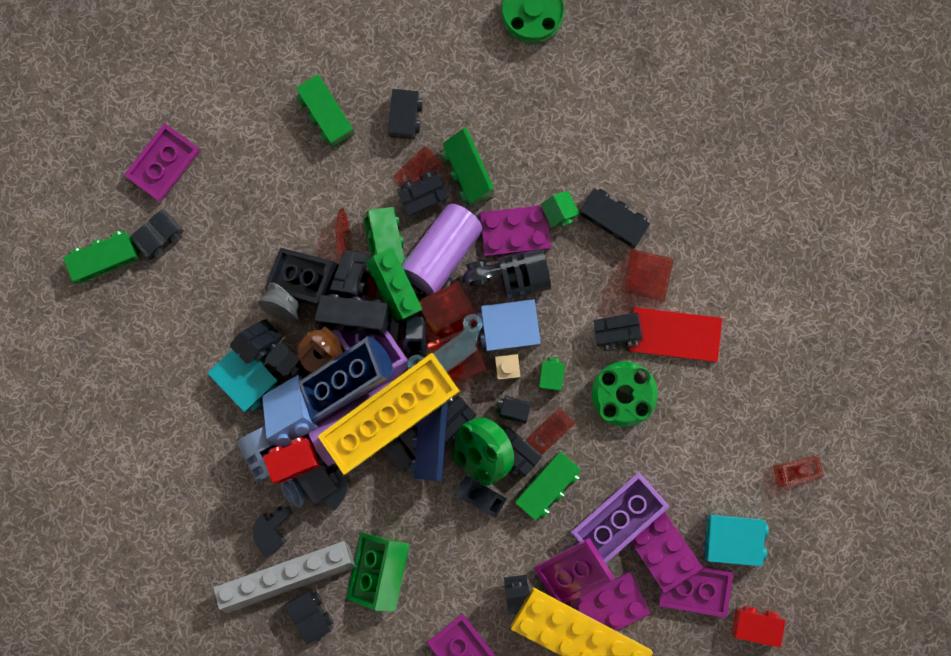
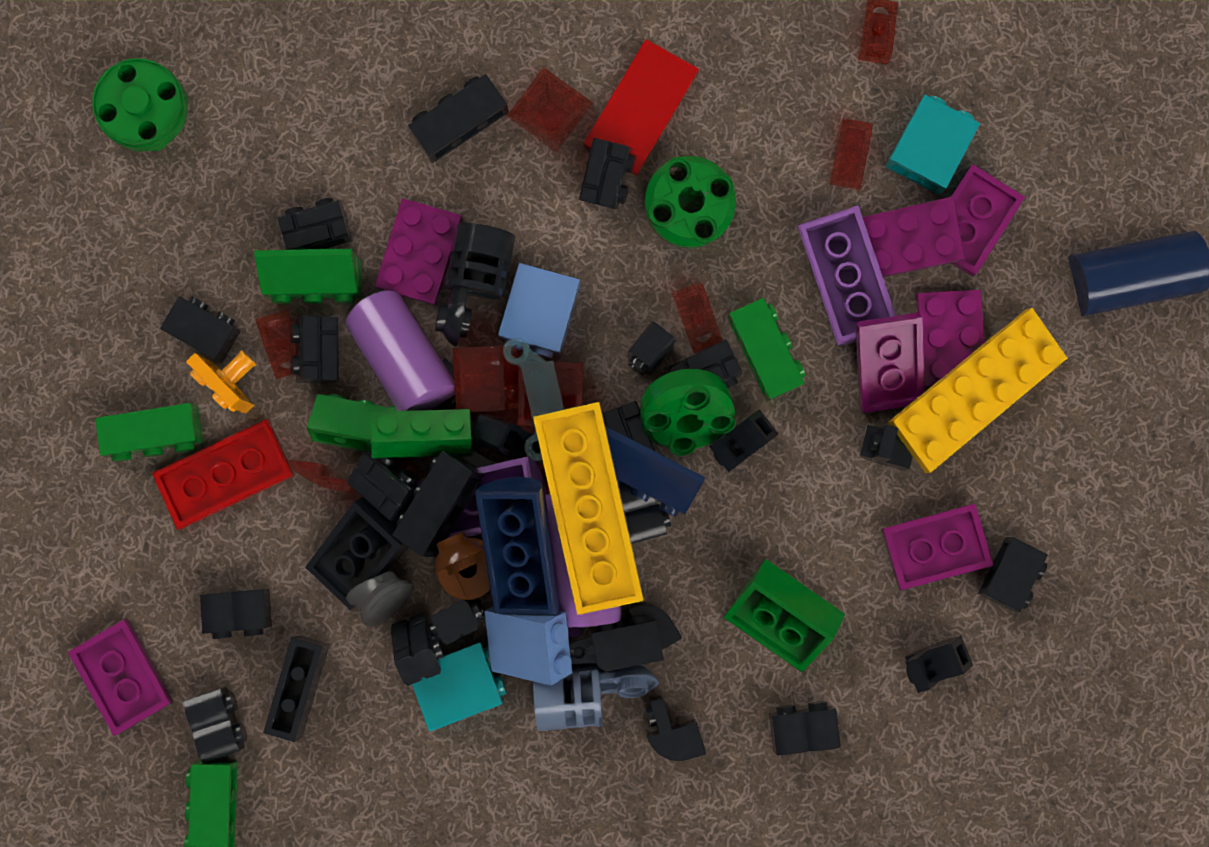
camera: 65 degrees left, 0 degrees up
(200, 276) = (296, 688): none -> black brick
(233, 216) = (236, 611): none -> black brick
(284, 577) = (741, 741): light grey brick -> none
(291, 461) = (595, 664): red brick -> none
(317, 169) = (222, 474): none -> red tile
(375, 143) = (223, 381): none -> light orange plate
(501, 157) = (315, 227): none -> black brick
(507, 367) = (592, 336): tan brick -> none
(551, 374) = (625, 284): green brick -> none
(560, 209) = (417, 181): green brick -> none
(705, 487) = (851, 153): none -> clear red slope
(758, 627) = (1053, 162): red brick -> none

